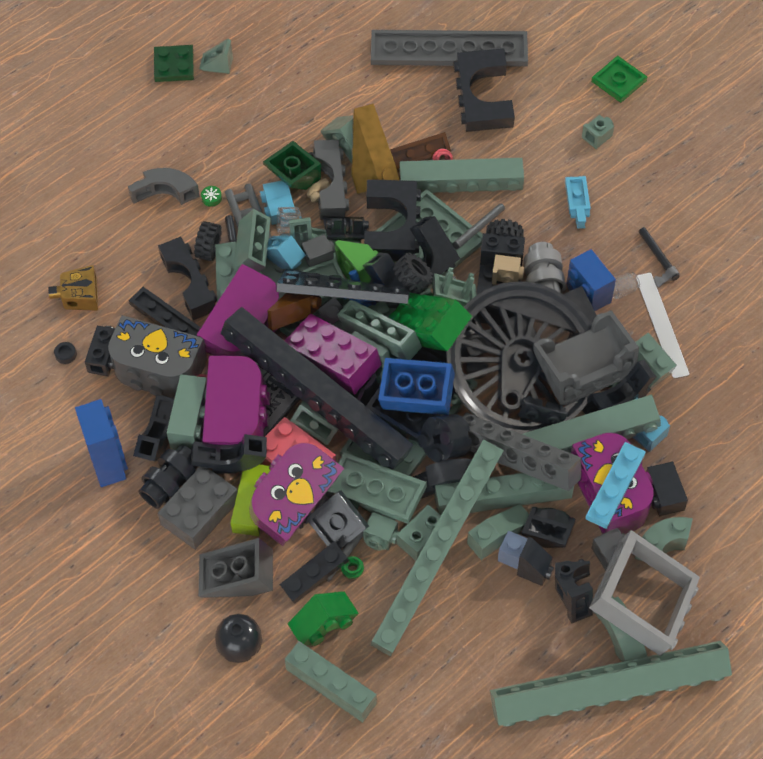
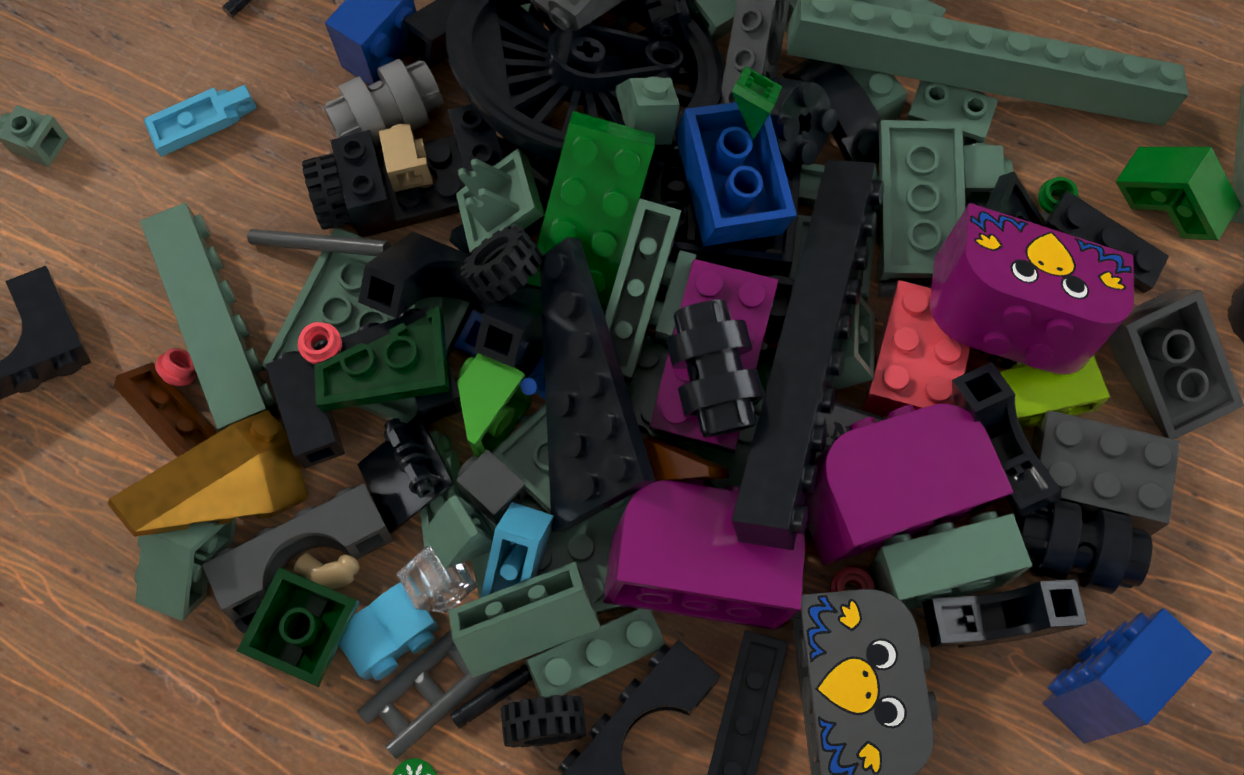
camera: 110 degrees left, 10 degrees up
(323, 328) = (711, 350): none -> black piece
(388, 222) = (391, 368): none -> dark green wing
(414, 195) = (311, 335): none -> coral plate
(441, 390) = (755, 98): none -> green slope
(472, 361) = (649, 106): none -> sand green slope

